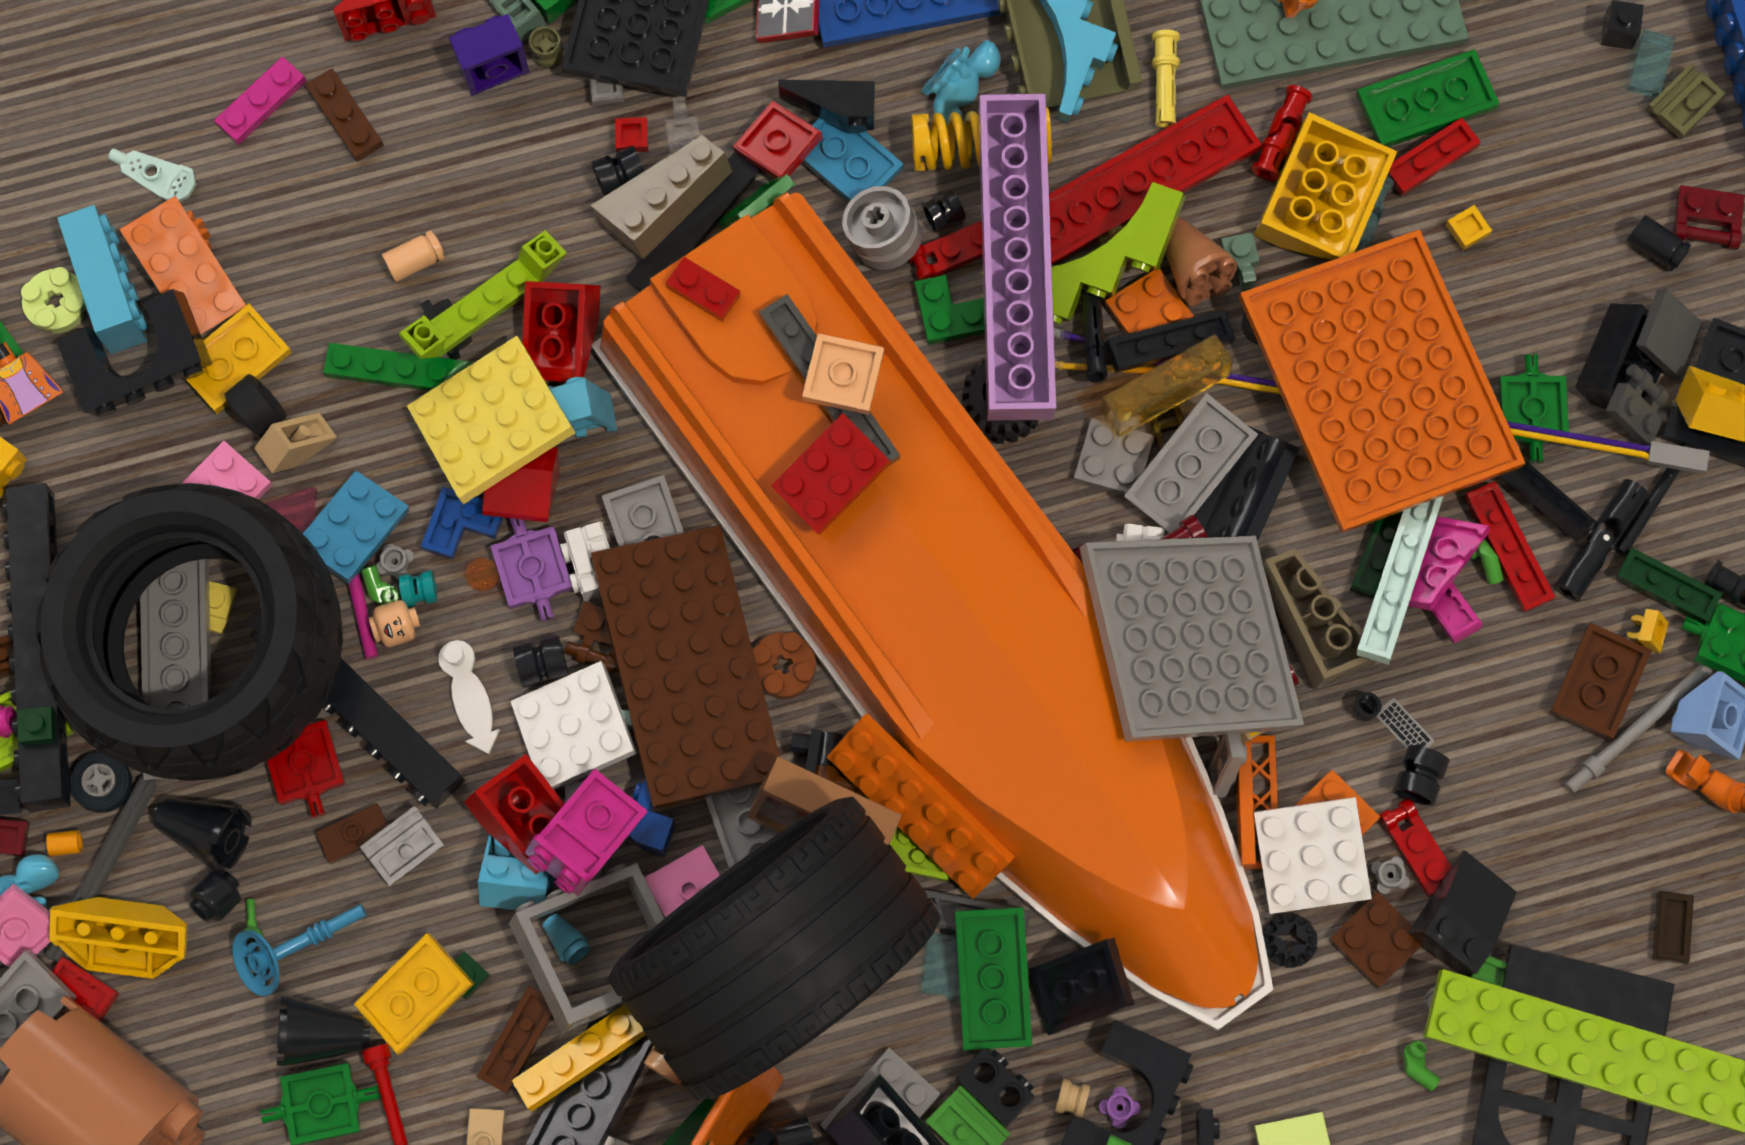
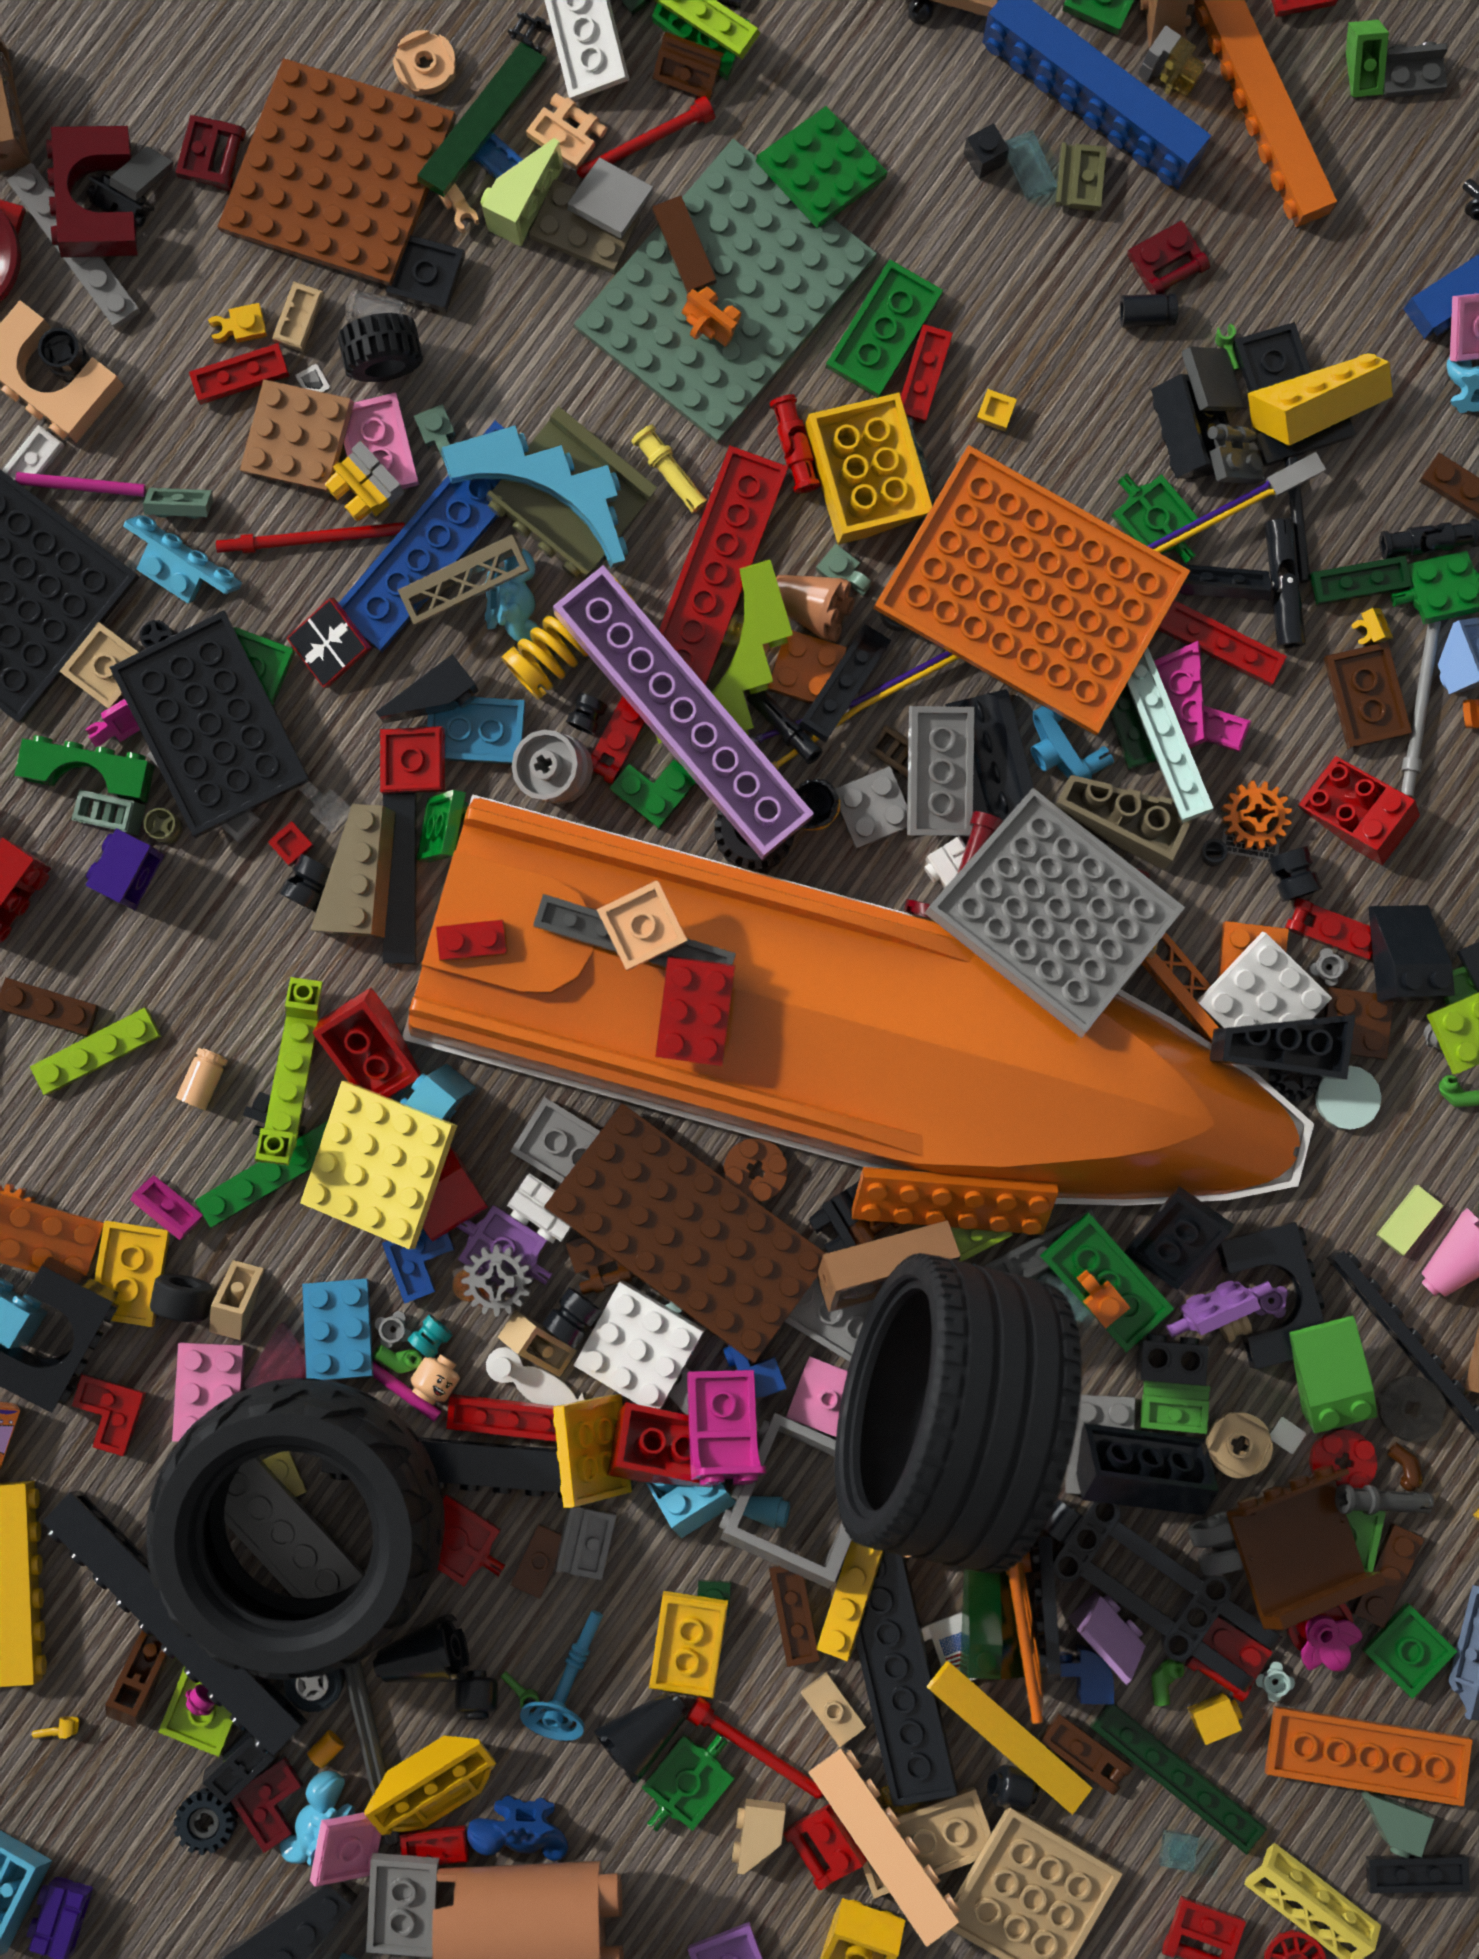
camera: 40 degrees left, 10 degrees up
(36, 725) = (233, 1689): dark green plate -> none
(136, 453) = (118, 1407): none -> red plate
(158, 1029) = (522, 1831): none -> blue animal
(303, 331) = (166, 1207): none -> dark pink plate
(351, 175) = (95, 1051): none -> lime plate
(428, 703) = (501, 1417): none -> red plate
(460, 764) = (585, 1448): none -> yellow plate
(496, 661) = (536, 1344): none -> tan slope
(514, 571) = (483, 1280): none -> light grey gear
(930, 27) = (460, 573): none -> dark tan fence
(977, 989) = (1103, 1300): none -> orange plate
(1072, 418) = (822, 800): none -> black hair
(1082, 1074) = (1219, 1307): none -> medium lavender plate
(1167, 386) = (873, 721): clear yellow brick -> none
(1226, 763) = (1150, 983): light grey plate -> none
(1301, 527) = (1057, 751): none -> dark azure connector
(1303, 905) = (1297, 1046): none -> black wedge
(1320, 994) = (1349, 1102): none -> light aqua tile
(1438, 709) = (1256, 828): none -> orange gear
(1490, 563) = (1218, 667): bright green arm -> none
(1520, 769) = (1360, 809): none -> red slope
(1706, 317) = (1227, 343): none -> bright green hand

